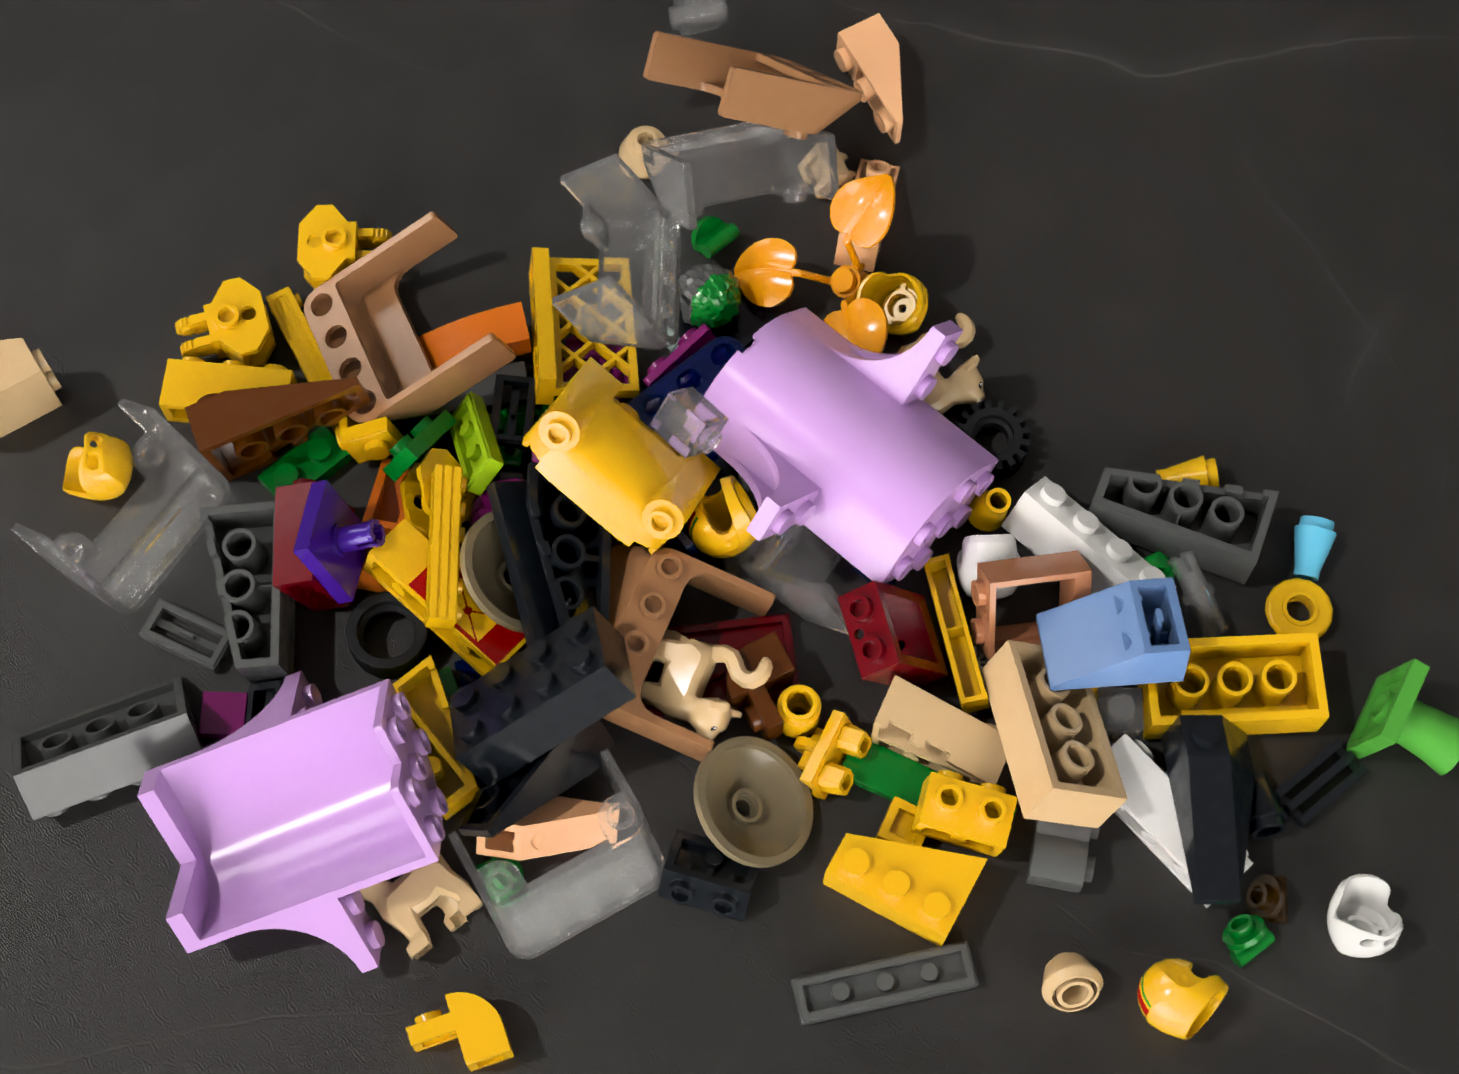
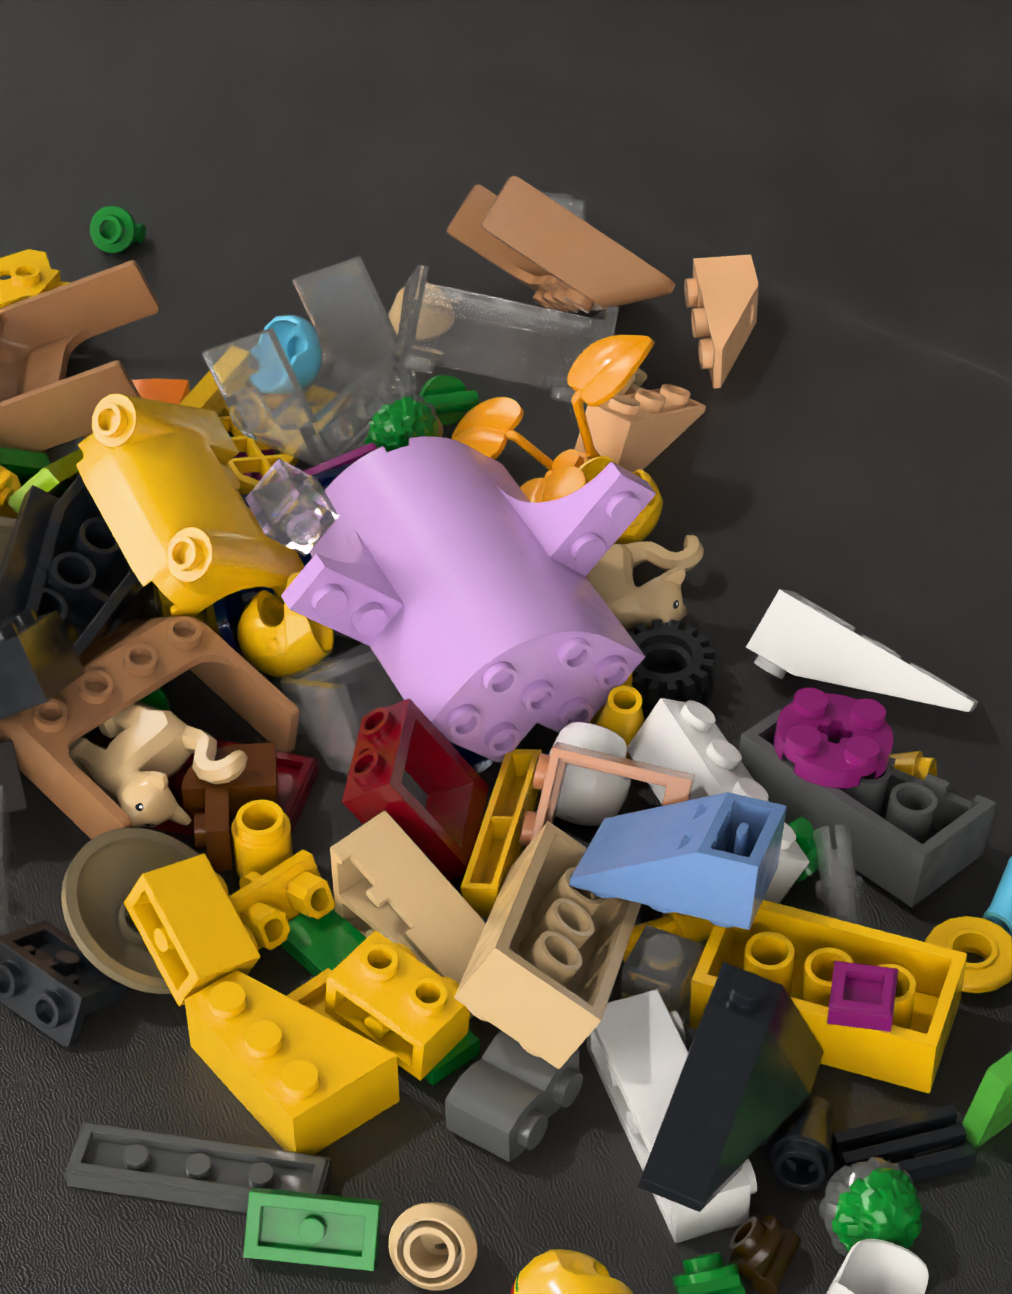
camera: 25 degrees right, 25 degrees down
(357, 144) = (115, 229): none -> green plate
(584, 250) = (300, 346): none -> medium azure hair
(801, 813) = (190, 926): none -> yellow brick
(987, 1001) = (313, 1229): none -> plate
(1093, 385) = (822, 647): none -> white wedge
(1165, 463) = (816, 716): none -> magenta plate
(1270, 698) = (862, 996): none -> magenta tile
(1329, 847) = (871, 1203): none -> green piece

